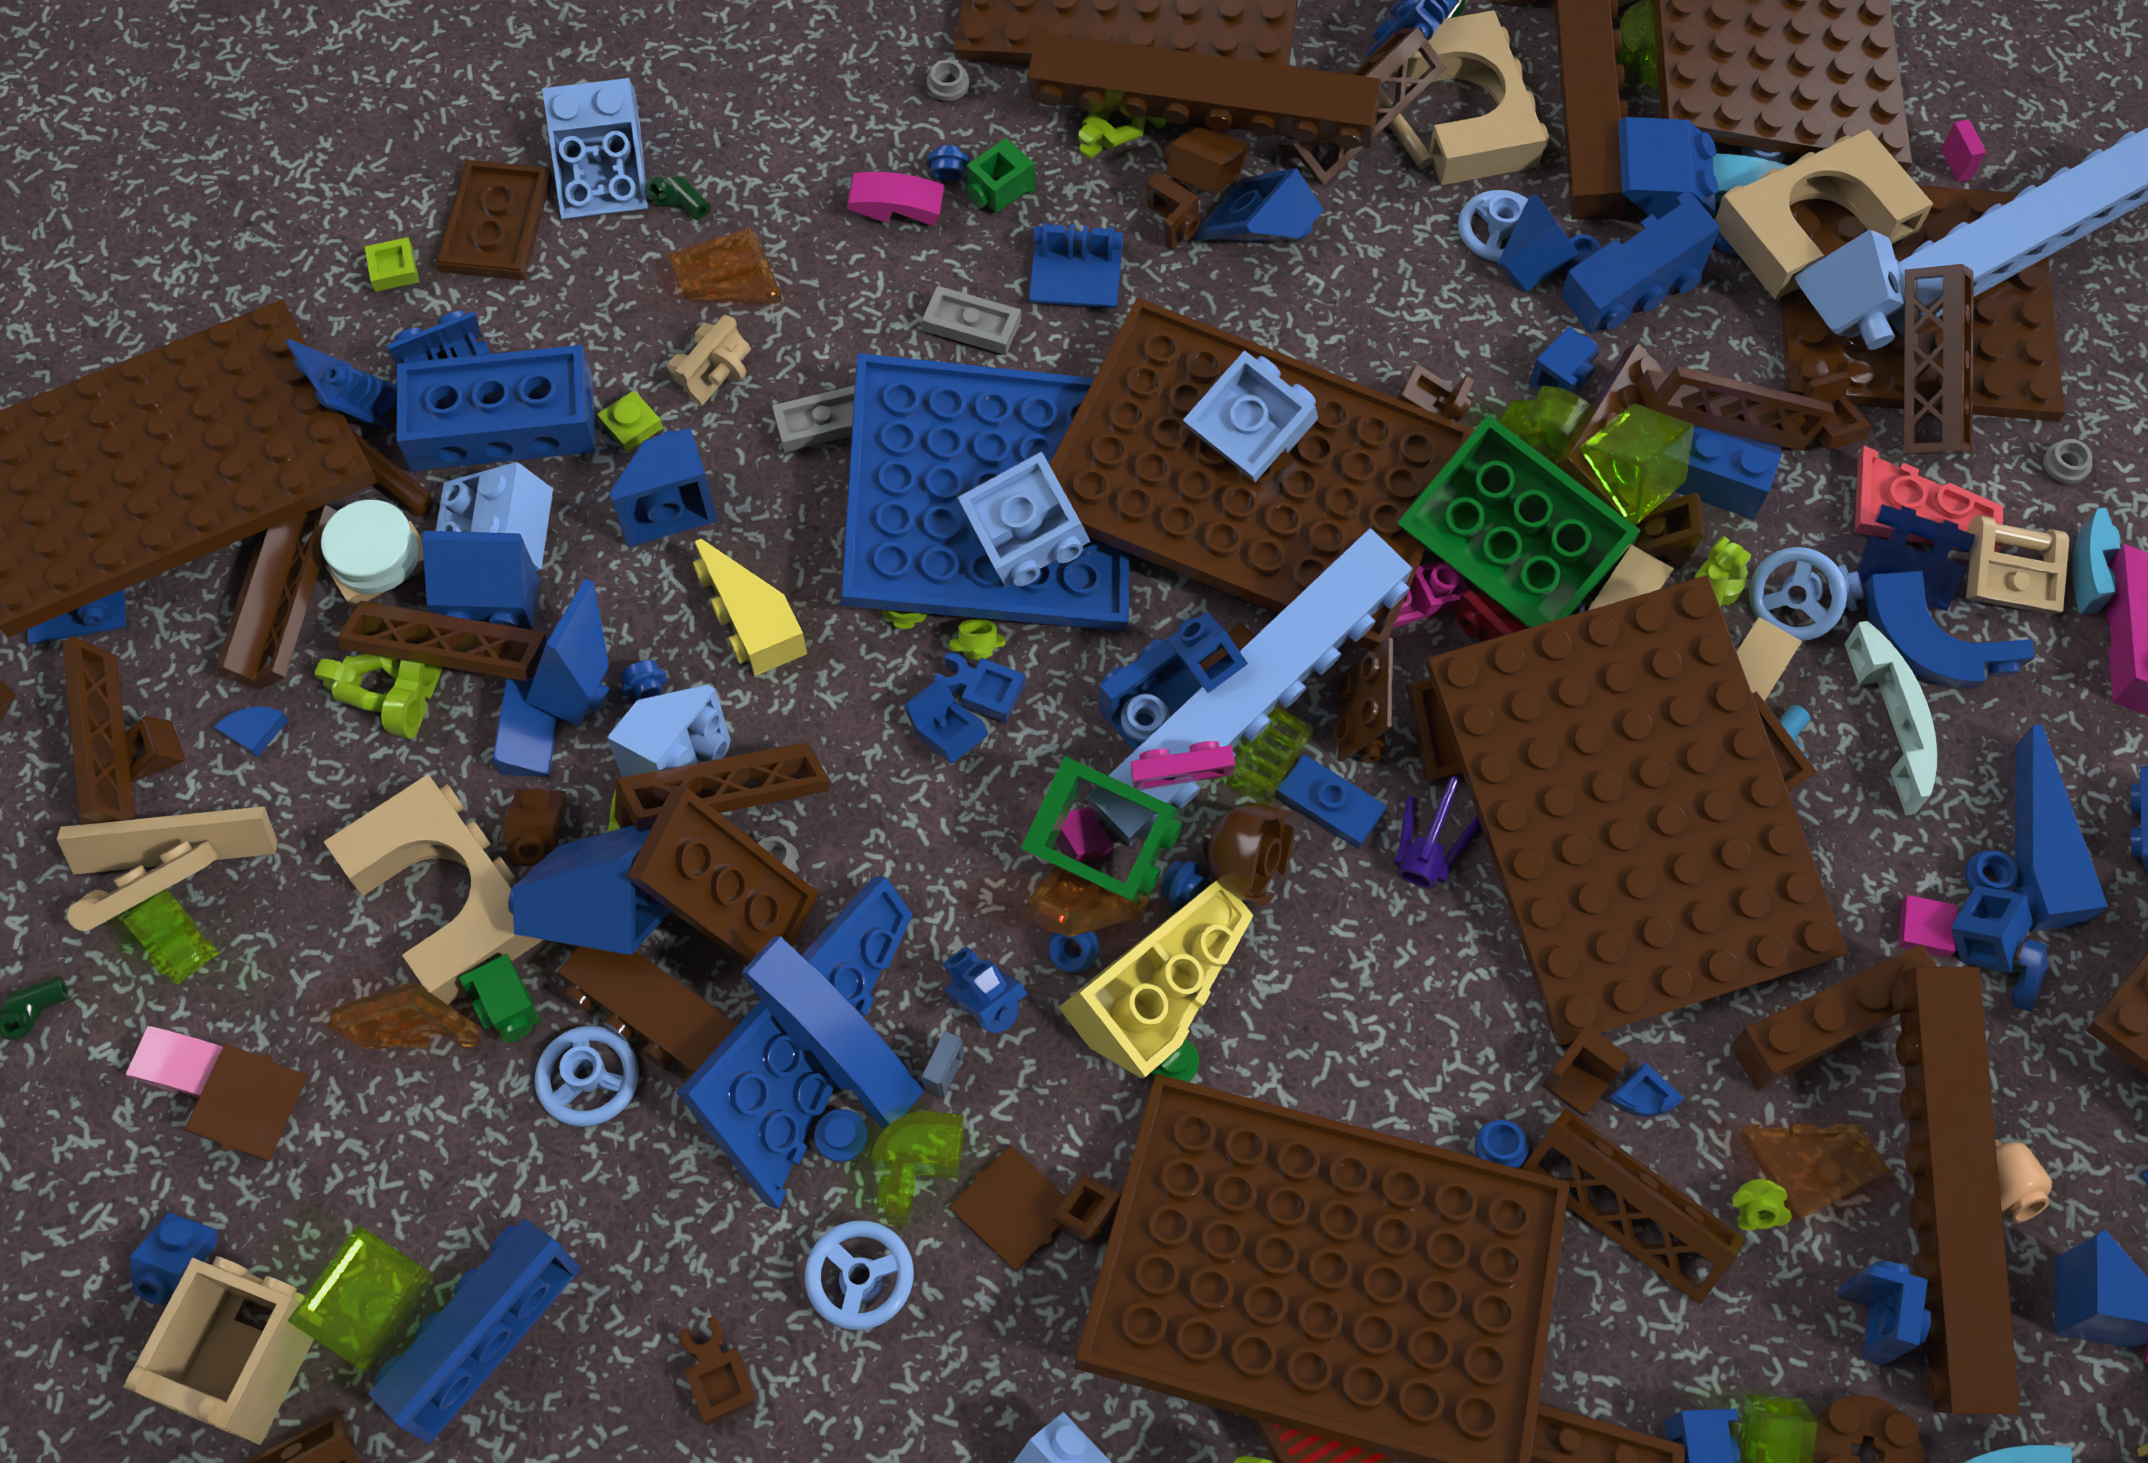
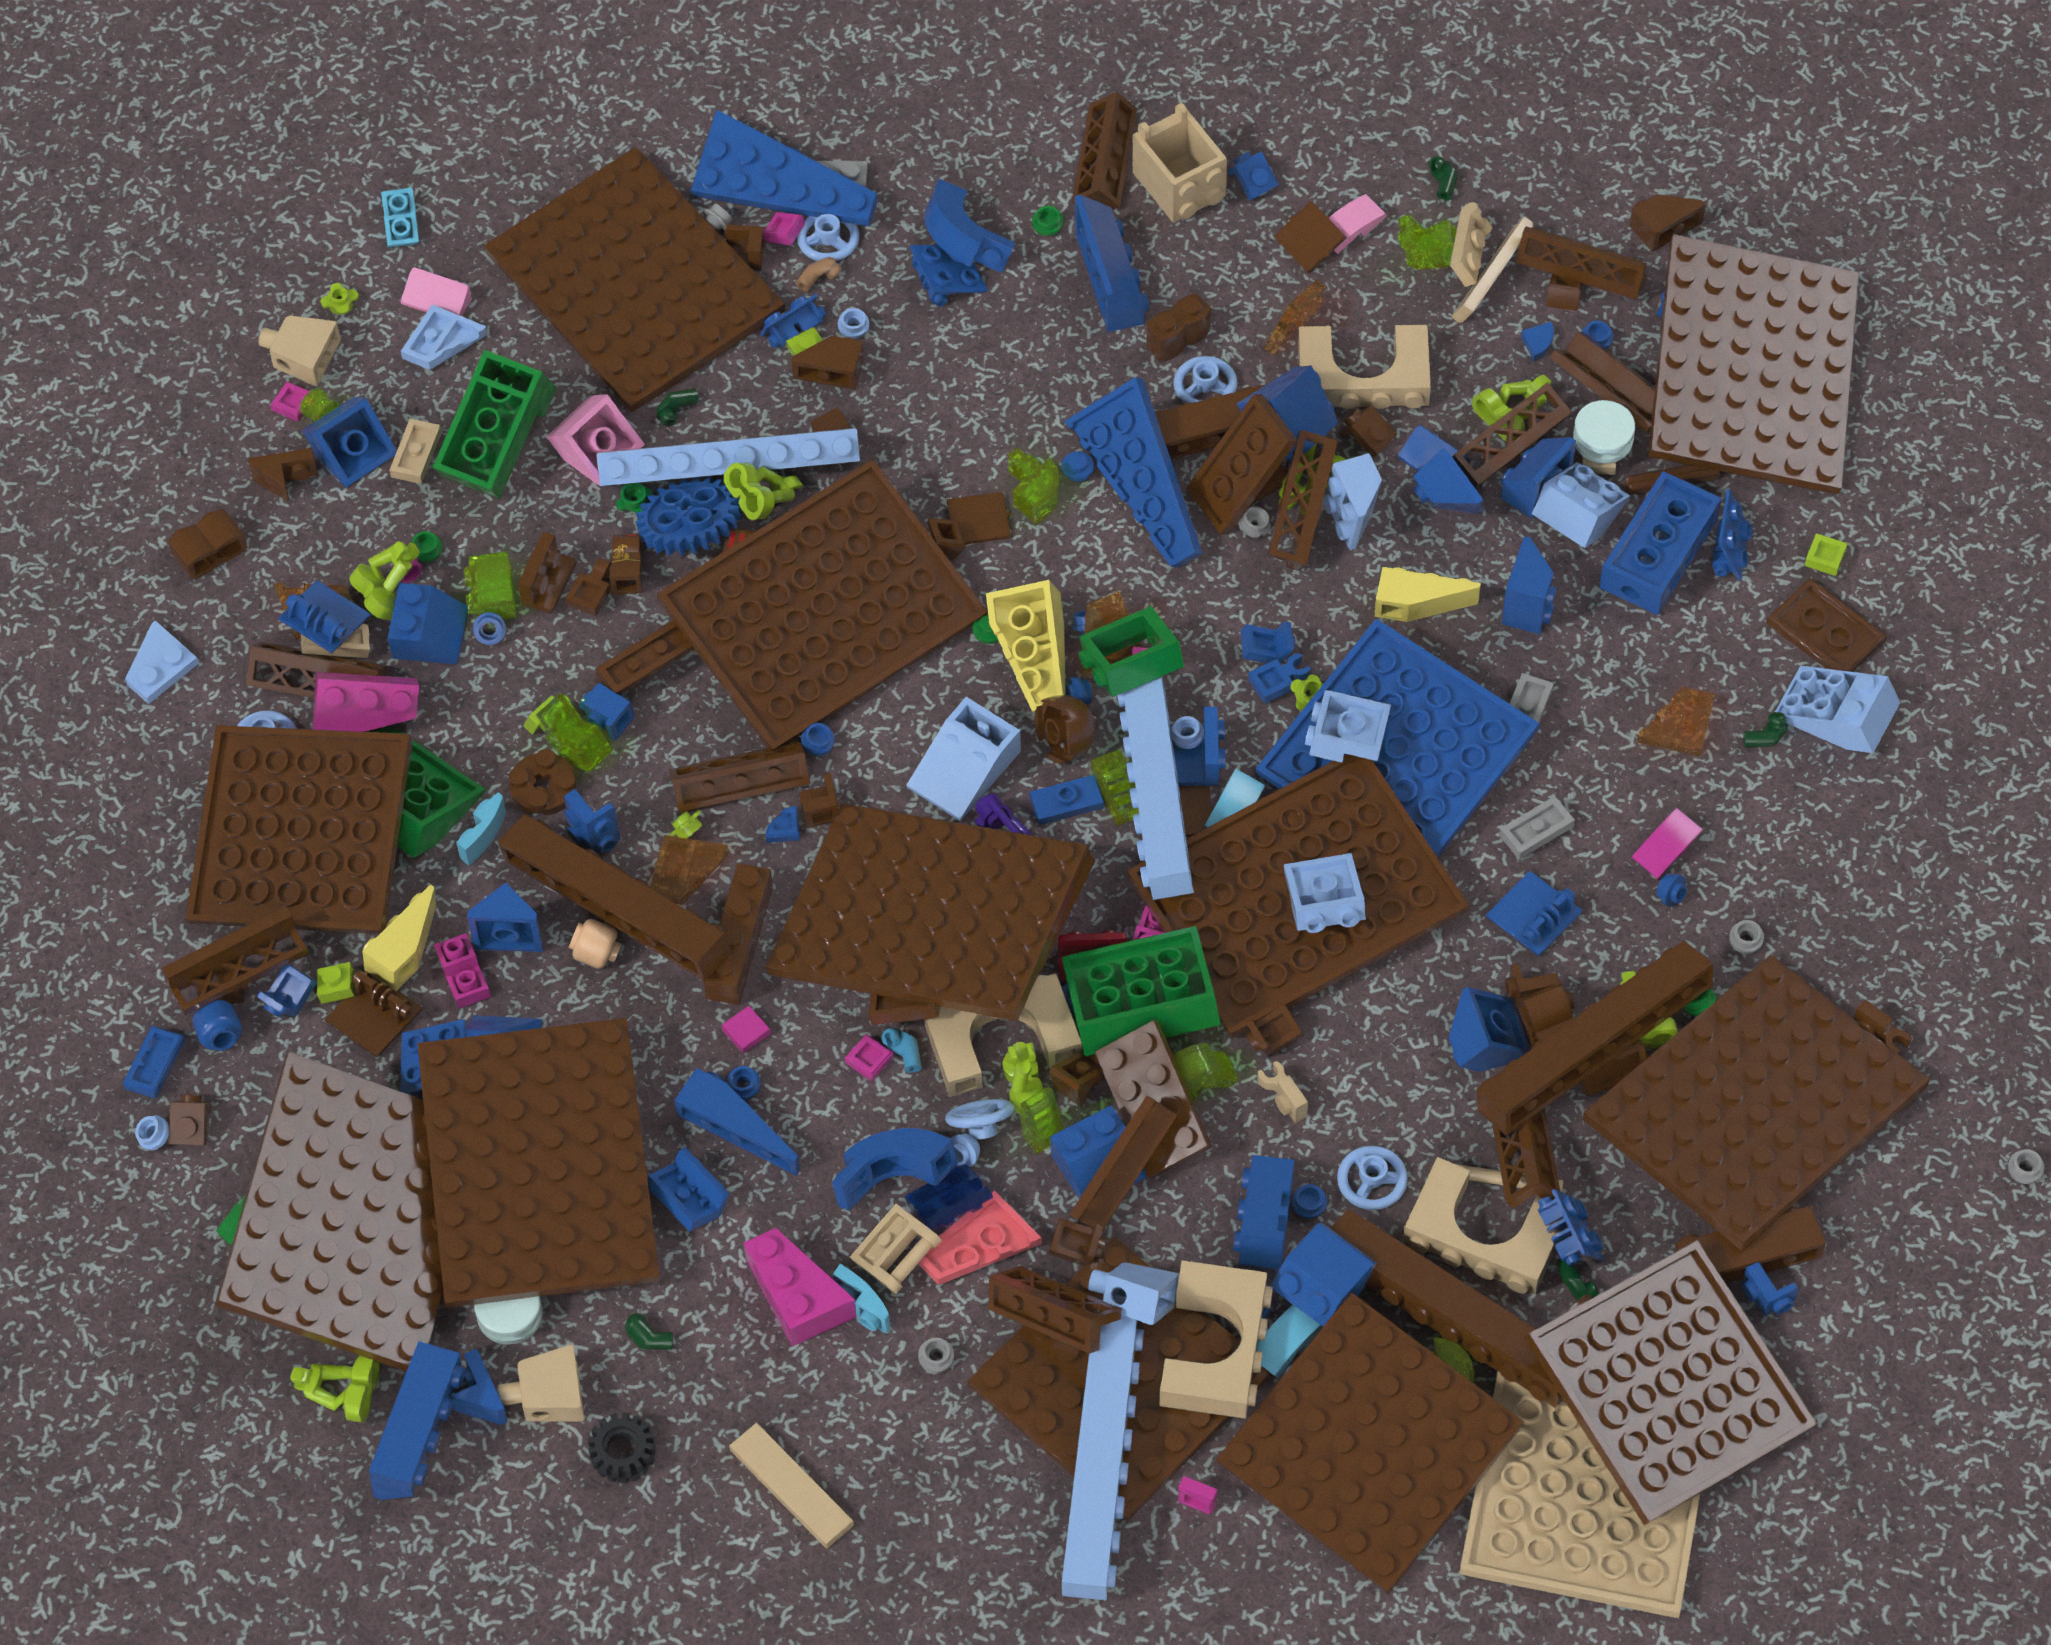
camera: 130 degrees right, 5 degrees down
(199, 666) = (1600, 333): none -> blue plate
(344, 387) = (1741, 469): blue hinge -> none
(361, 1298) = (1157, 224): clear neon green slope -> none
(501, 999) = (1272, 361): green brick -> none
(511, 1158) = (1179, 327): none -> reddish brown brick
(630, 421) = (1607, 615): lime plate -> none
(643, 680) = (1417, 524): blue plate -> none
(712, 361) = (1612, 674): tan hips -> none
(720, 1378) = (1002, 349): reddish brown plate -> none
(831, 1028) = (1124, 471): blue slope -> none
(899, 1261) = (999, 441): light blue piece -> none
(943, 1065) = (1073, 525): sand blue tile -> none
(983, 990) = (1094, 560): blue hips -> none
(1000, 176) = (1635, 908): green brick -> none
(1161, 769) = (1130, 702): dark pink plate -> none
(1167, 611) = (1238, 793): none -> medium azure slope
(1200, 639) = (1187, 754): blue brick -> none
(1365, 705) = (1111, 852): reddish brown hinge -> none
(1386, 937) = (965, 759): none -> light blue slope
(1493, 337) = (1289, 1097): none -> tan plate
(1535, 246) = (1336, 1173): blue slope -> none
(1566, 362) = (1234, 1120): blue brick -> none
(1640, 458) = (1125, 1065): clear neon green slope -> none
(1753, 525) = (1040, 1119): none -> clear neon green slope
(1835, 771) = (869, 1057): none -> dark pink tile
(1880, 662) = (858, 1113): light aqua slope -> none
(1991, 928) = (716, 1046): blue brick -> none
(2035, 968) = (677, 1050): blue tile -> none

